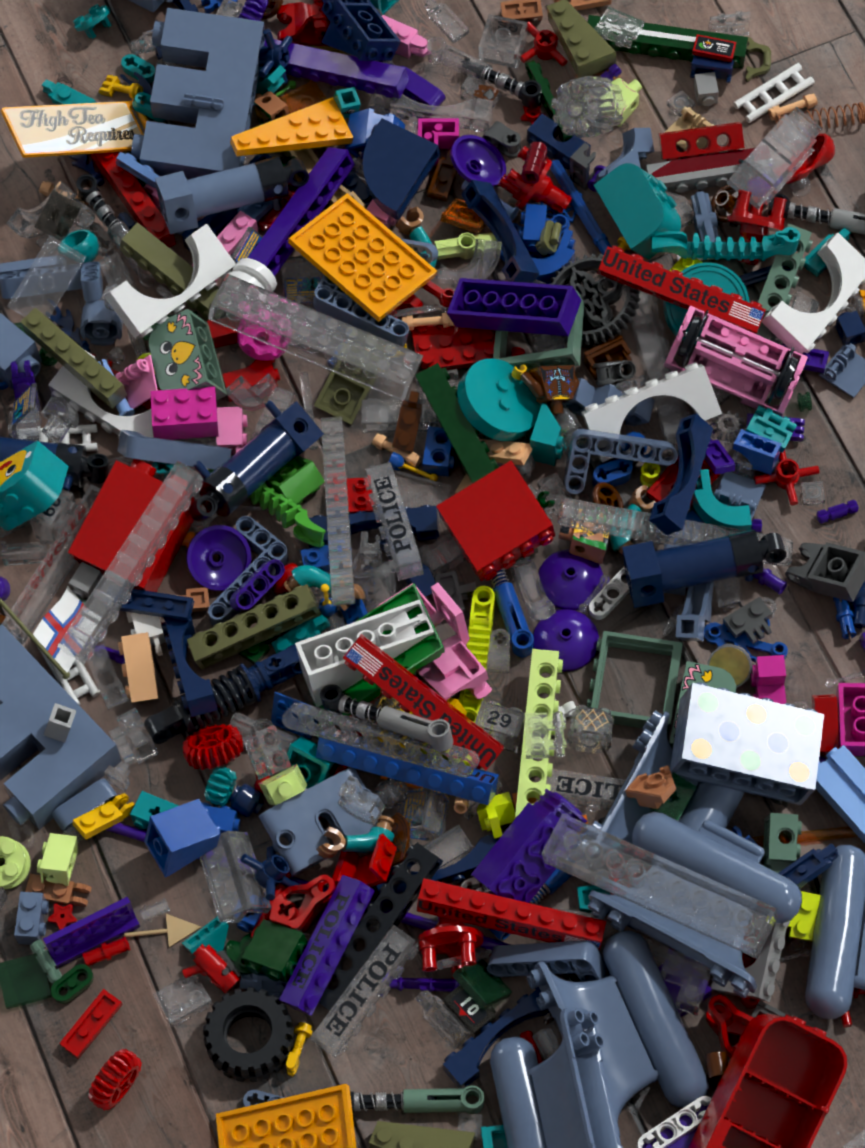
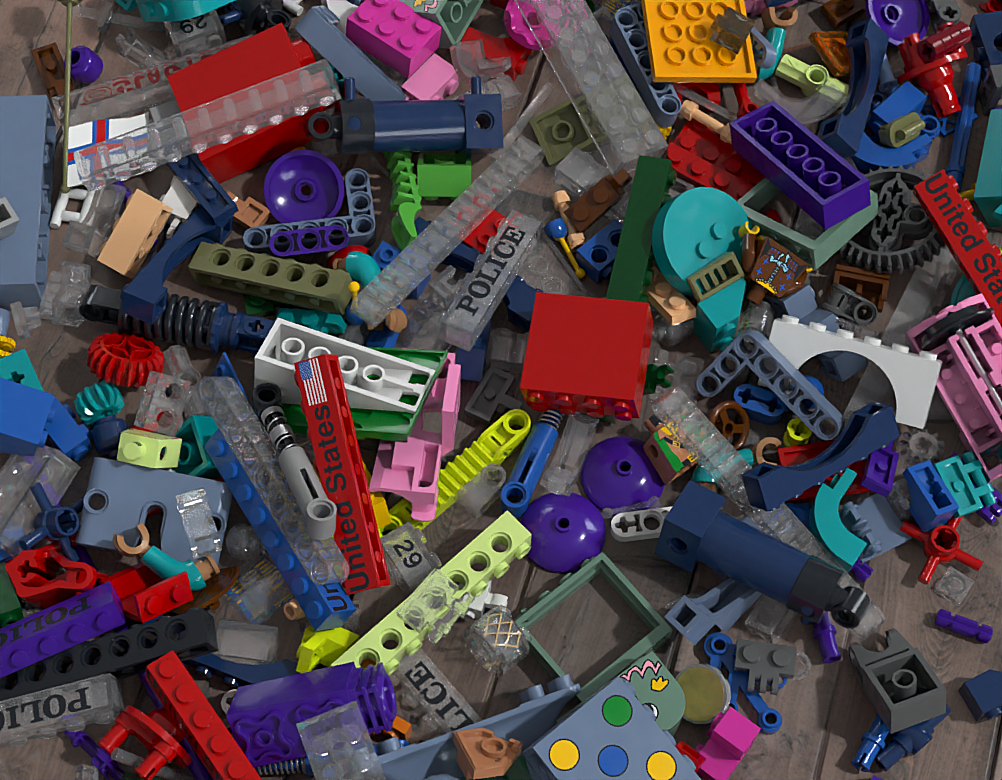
camera: 35 degrees right, 0 degrees up
(399, 251) = (731, 29): none -> clear smoke brick
(534, 404) = (732, 266): none -> olive slope

